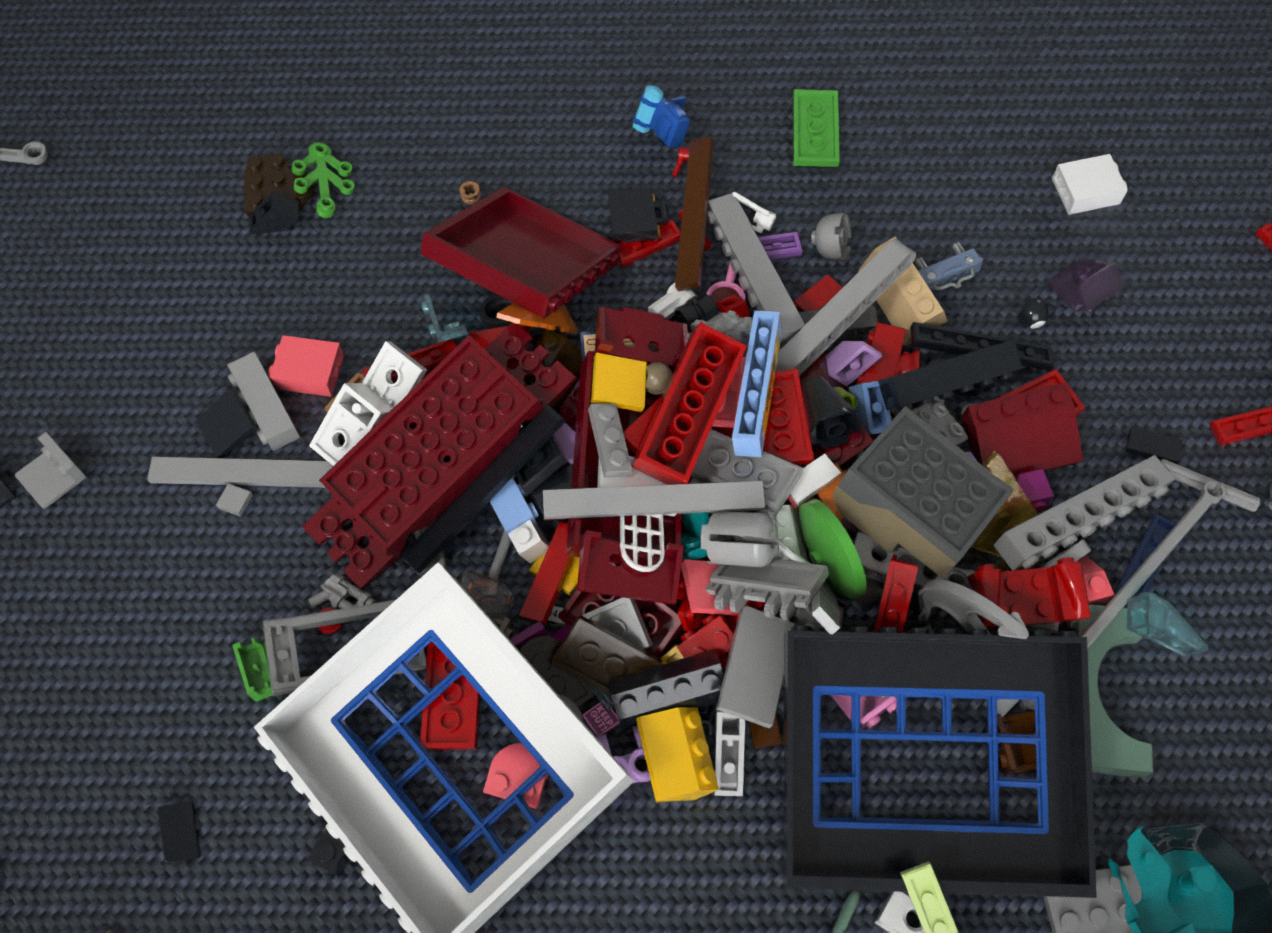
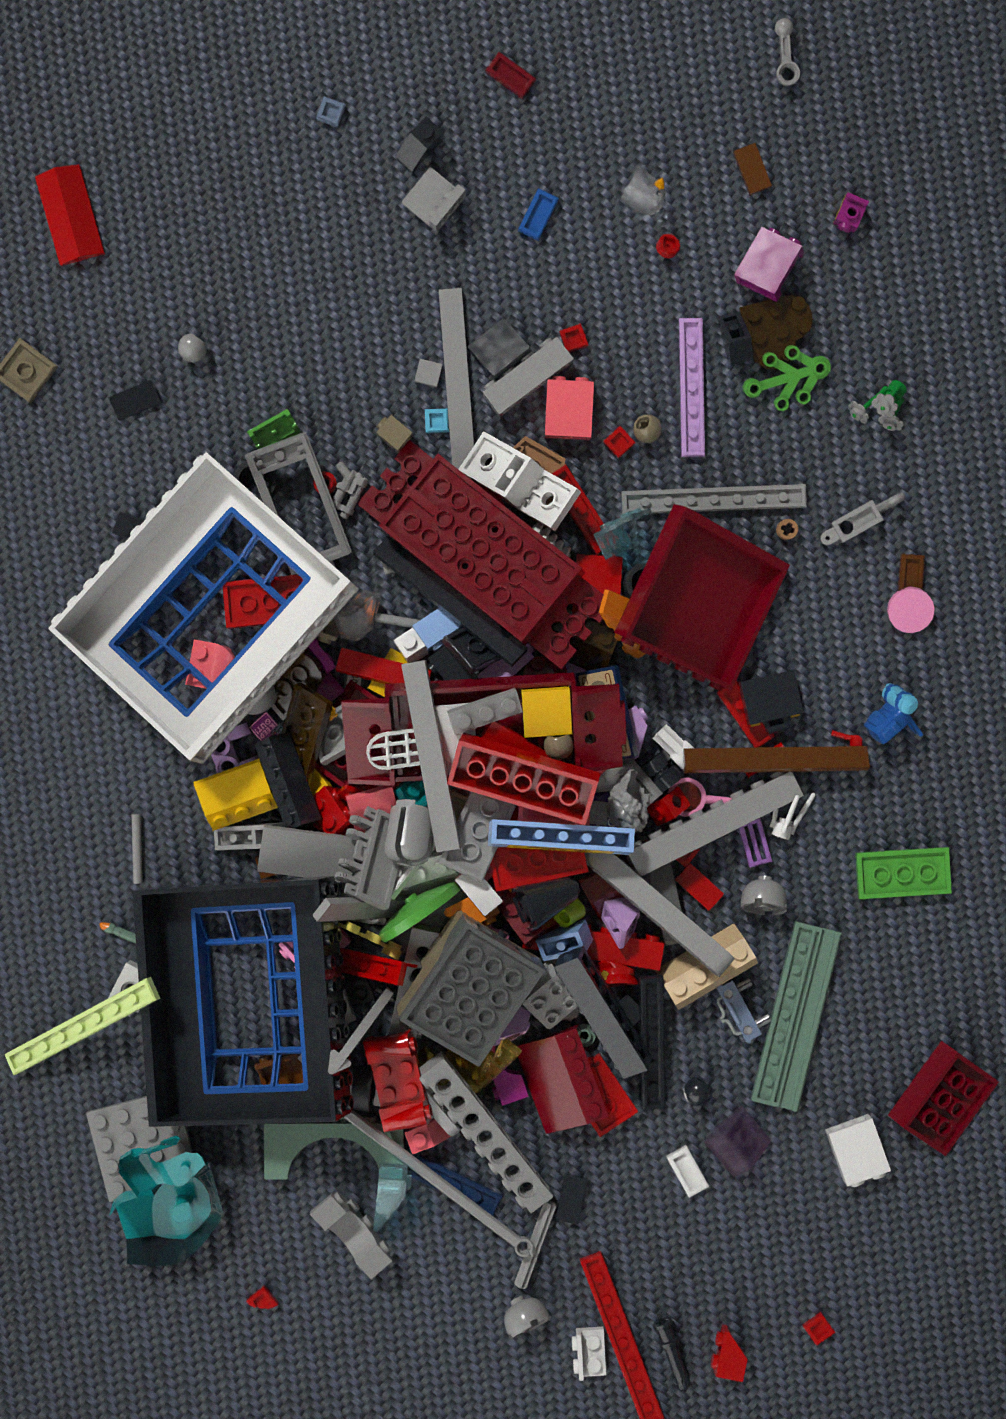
camera: 80 degrees right, 25 degrees up
(99, 378) = (538, 214): none -> blue tile
(107, 277) = (644, 192): none -> clear piece
(115, 191) = (752, 169): none -> reddish brown tile
(134, 752) = (192, 348): none -> light grey piece
(166, 265) = (668, 246): none -> red tile
(181, 116) = (843, 219): none -> magenta brick
(209, 179) = (768, 263): none -> panel
(233, 353) = (573, 338): none -> red tile
(288, 497) = (436, 421): none -> medium azure tile
(290, 538) = (394, 433): none -> dark tan brick
(313, 259) = (691, 387): none -> lavender tile
(343, 296) = (647, 428): none -> dark tan piece
(352, 327) = (619, 442): none -> red tile
(367, 92) = (887, 404): none -> light grey plant
(424, 269) = (717, 498): none -> light grey tile
(470, 131) = (861, 518): none -> light grey piece
(534, 102) = (910, 571): none -> reddish brown tile
(564, 100) = (910, 610): none -> bright pink tile
(733, 895) = (137, 849): none -> light grey bar
(862, 600) = (390, 949): none -> light yellow plant
(953, 223) = (796, 1016): none -> sand green plate
(1034, 115) = (943, 1098): none -> dark red slope
(1117, 334) = (687, 1171): none -> white tile
(1215, 670) = (355, 1231): none -> light grey brick

